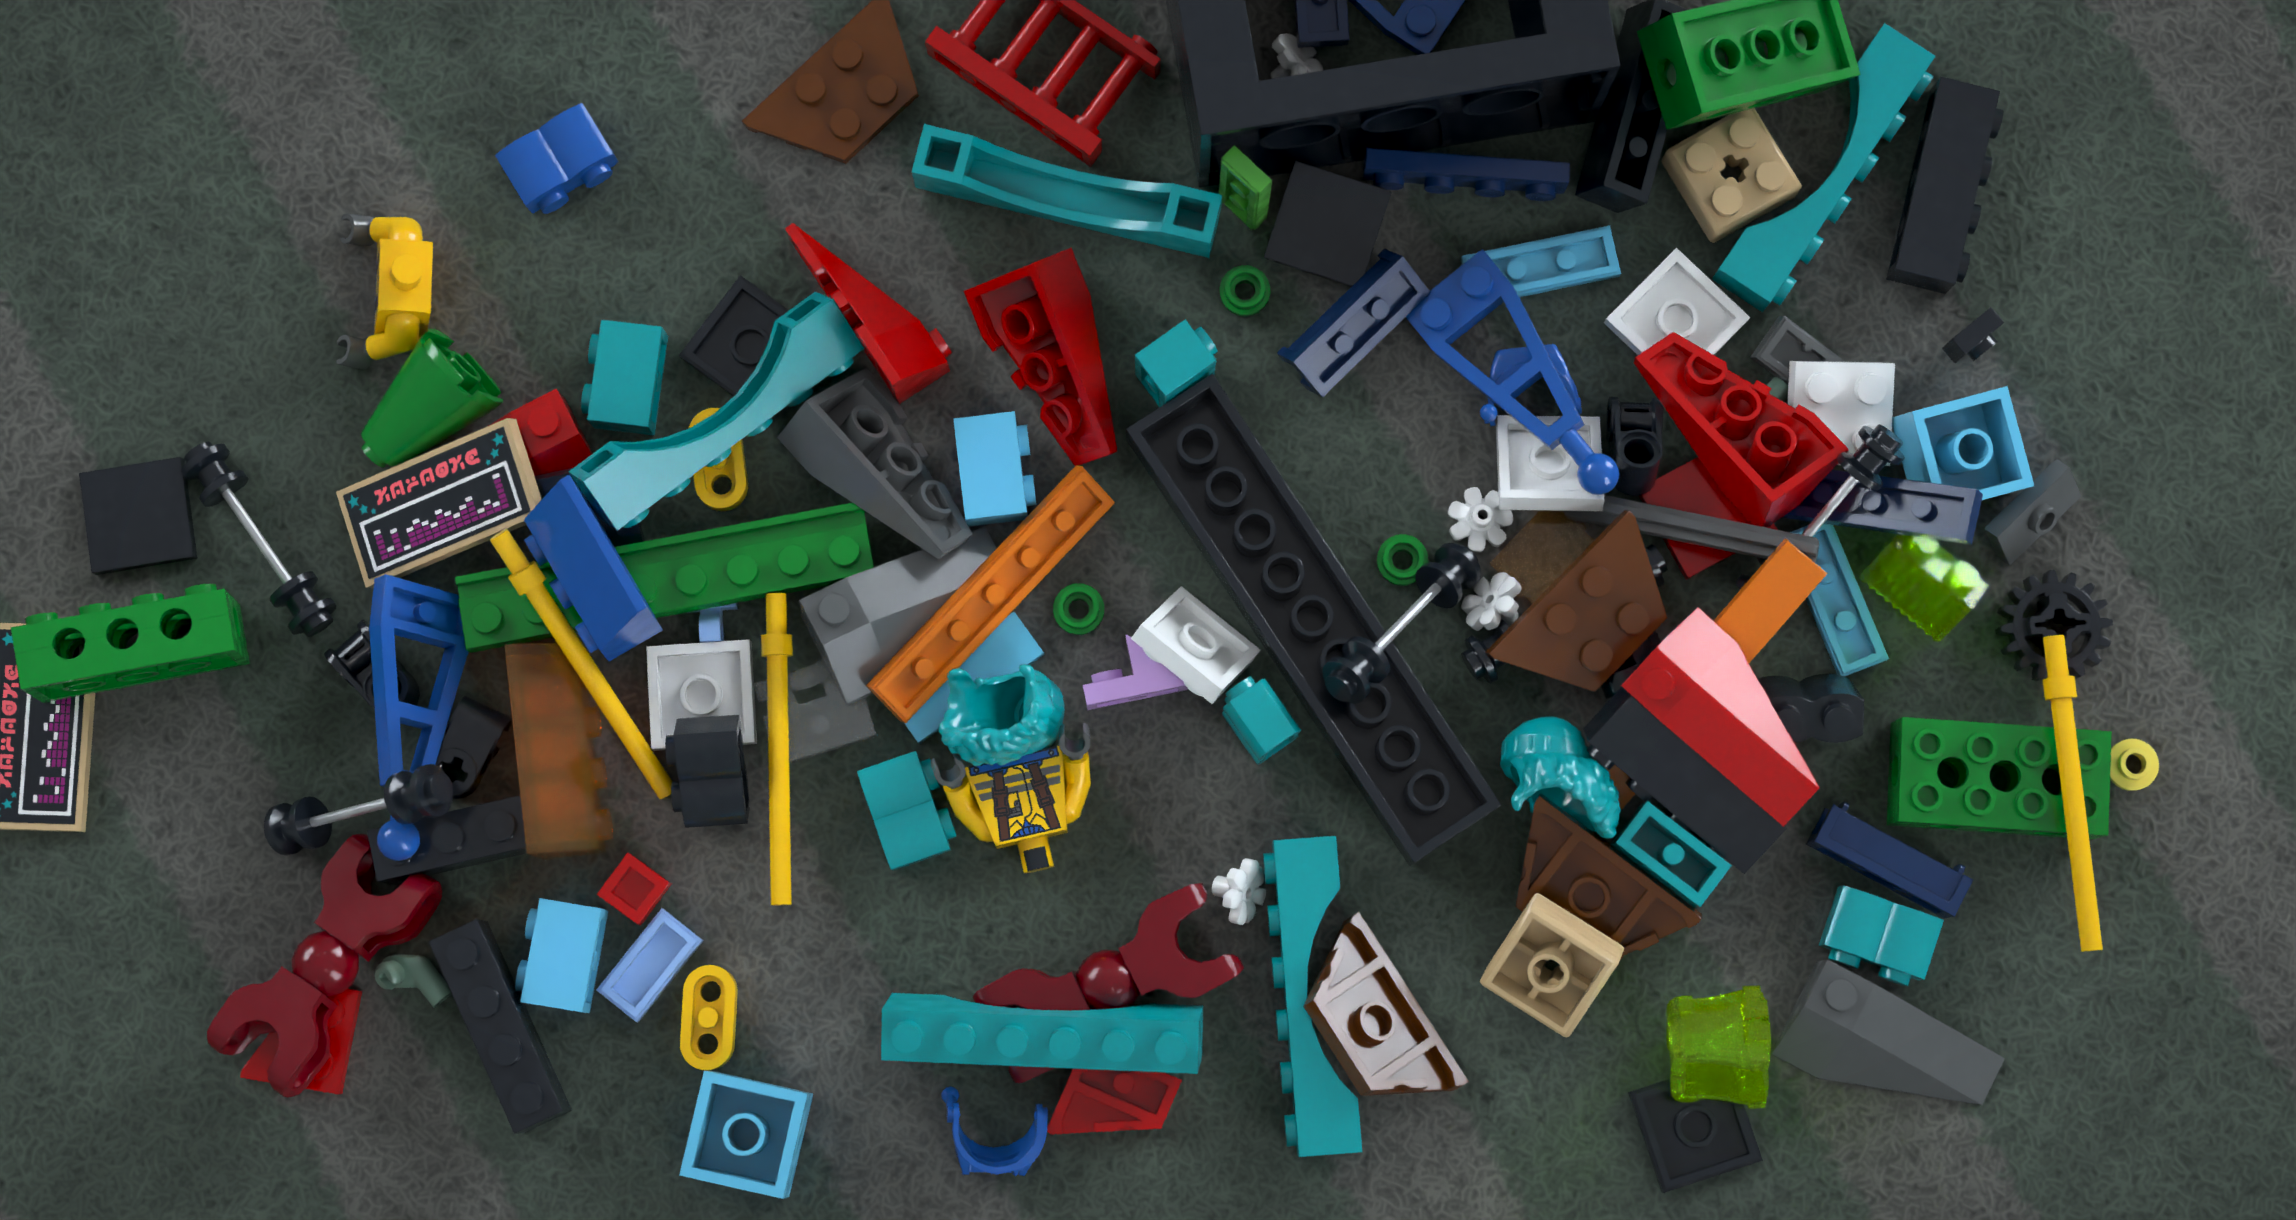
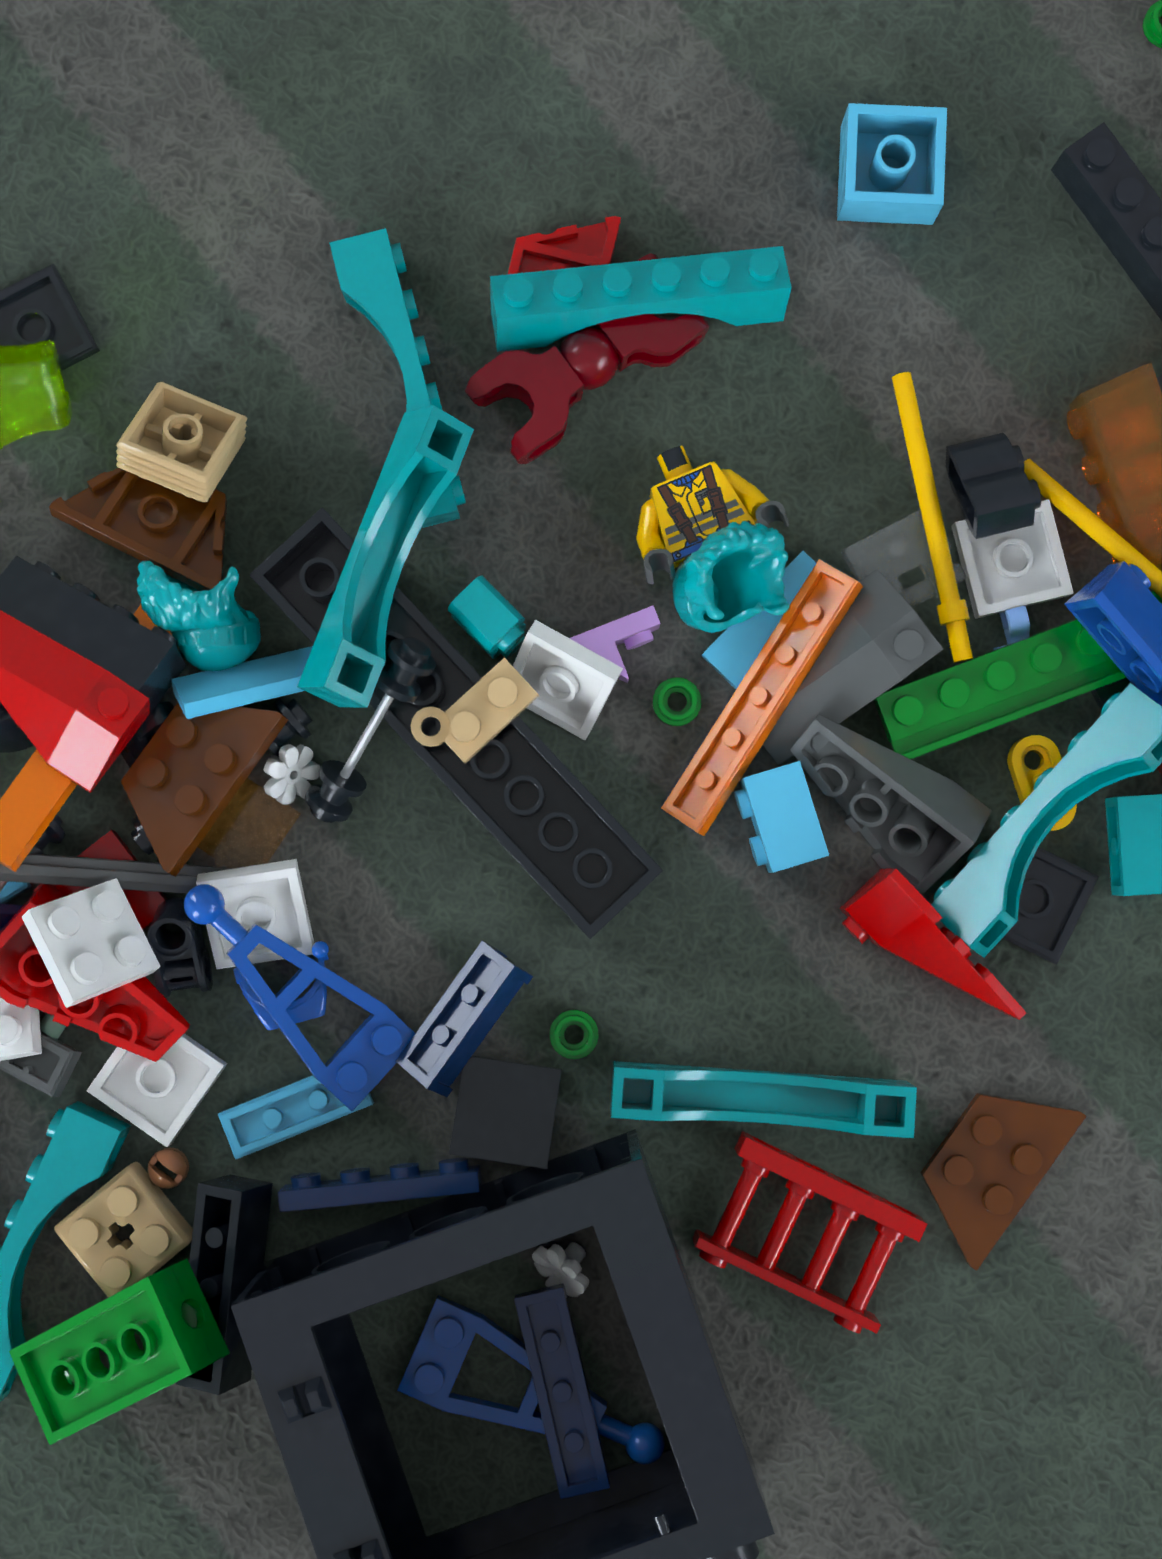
camera: 170 degrees right, 5 degrees up
(562, 955) = (1091, 297): medium azure brick -> none
(634, 889) = (1037, 371): red plate -> none
(649, 965) = (1008, 308): light blue tile -> none
(706, 1017) = (947, 269): yellow plate -> none
(906, 810) = (804, 483): teal brick -> none
(1005, 1159) = (661, 187): blue helmet -> none
(1051, 334) = (752, 961): red wedge -> none
(1175, 362) = (625, 944): teal brick -> none
(1241, 891) = (480, 465): white plant -> none
(1244, 188) = (591, 1127): bright green tile -> none
(1286, 618) = (478, 713): none -> tan hinge
(1376, 1021) = (337, 367): wing -> none
(1396, 544) = (397, 807): green plate -> none
(1403, 709) = (353, 632): none -> teal arch
(1472, 526) = (326, 850): white plant -> none
(1518, 698) = (242, 684): none -> medium azure tile
(1670, 854) = (86, 561): teal brick -> none
(1674, 234) = (171, 1160): none -> nougat hinge
(1717, 453) = (90, 942): none -> white plate

